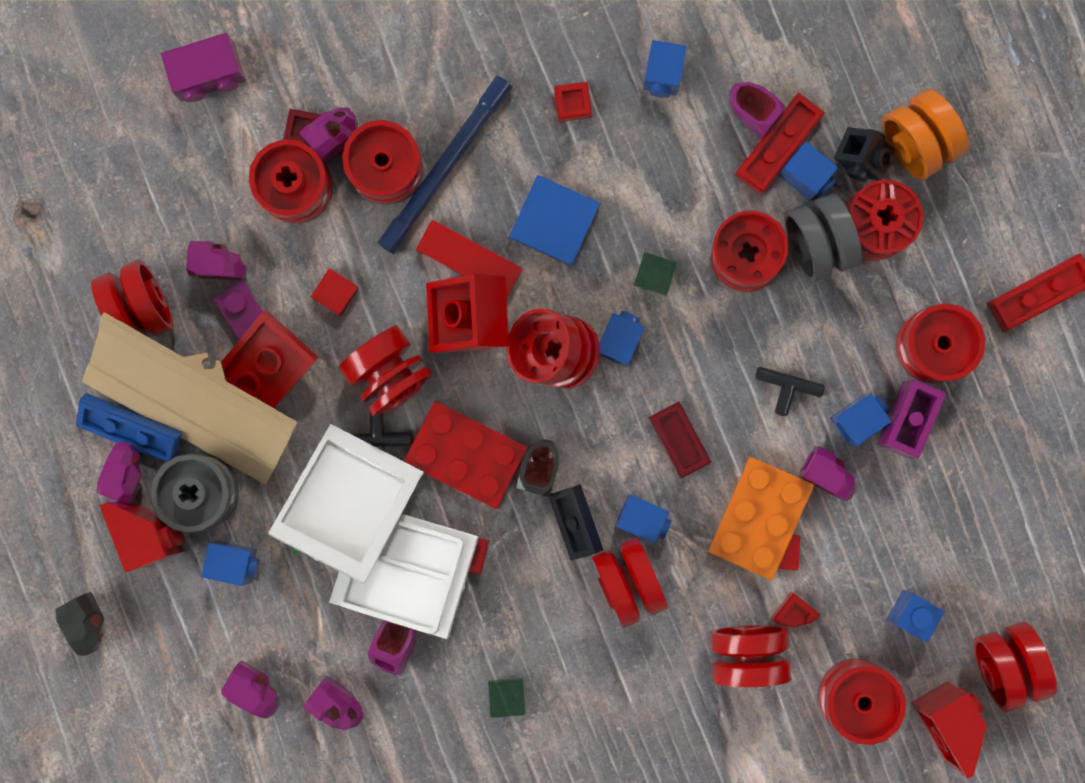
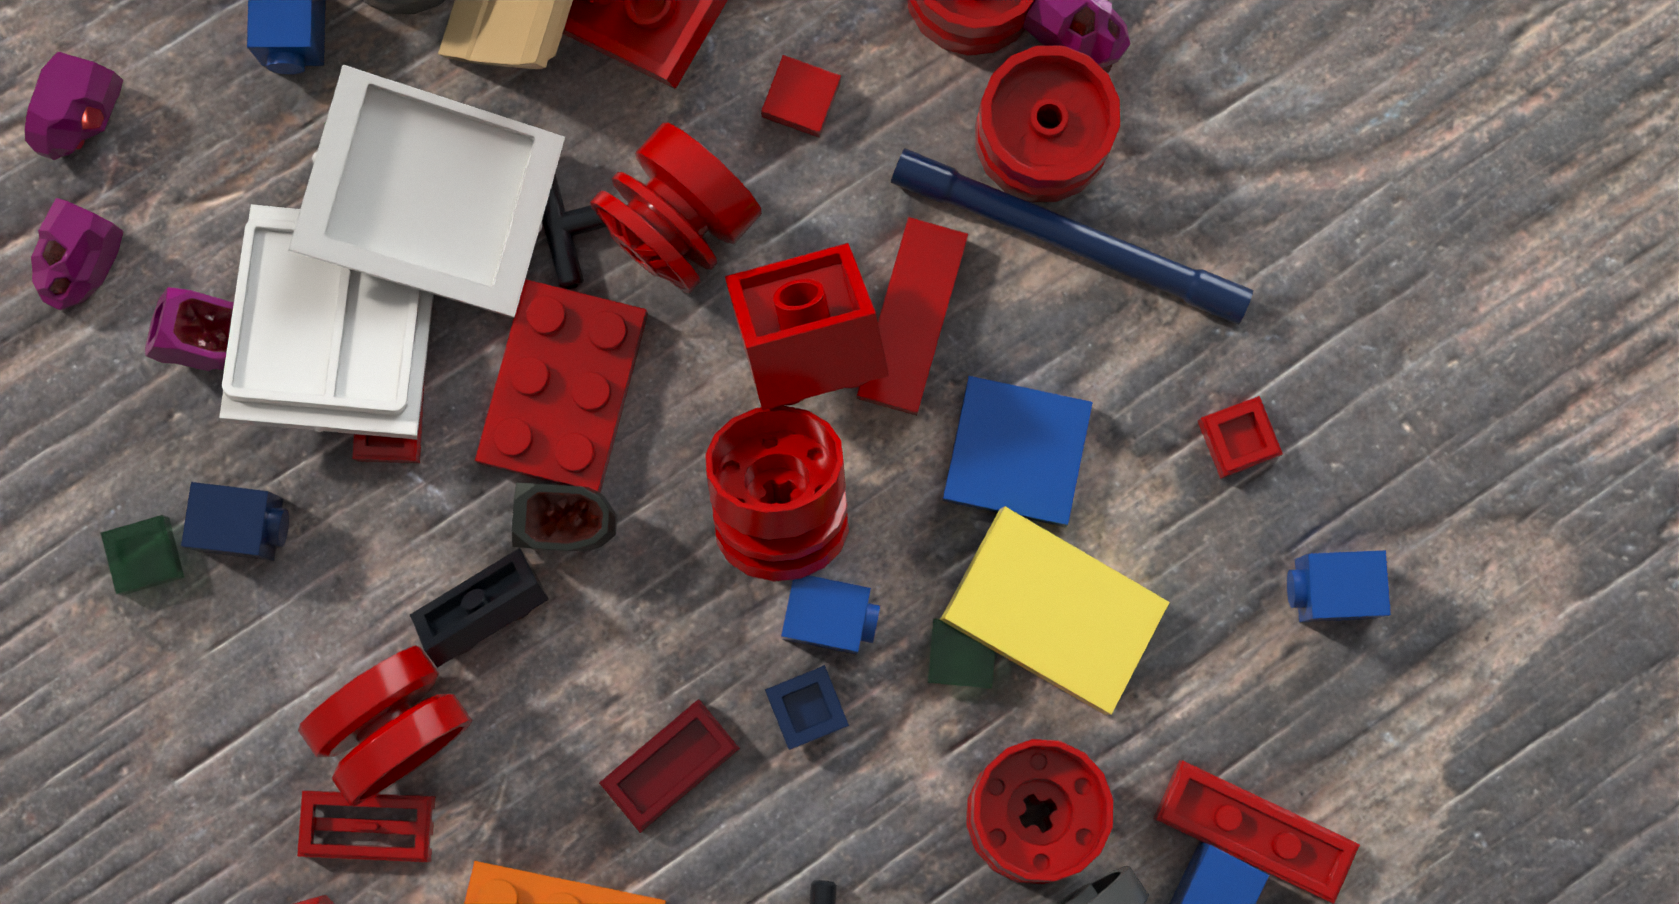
camera: 75 degrees right, 5 degrees down
(501, 643) = (234, 521): none -> dark blue brick
(643, 519) = (508, 729): blue brick -> none
(644, 220) = (1055, 611): none -> light yellow tile
(666, 361) = (806, 707): none -> dark blue plate
(683, 577) = (421, 828): none -> red tile
(755, 106) = (1311, 768): rock -> none

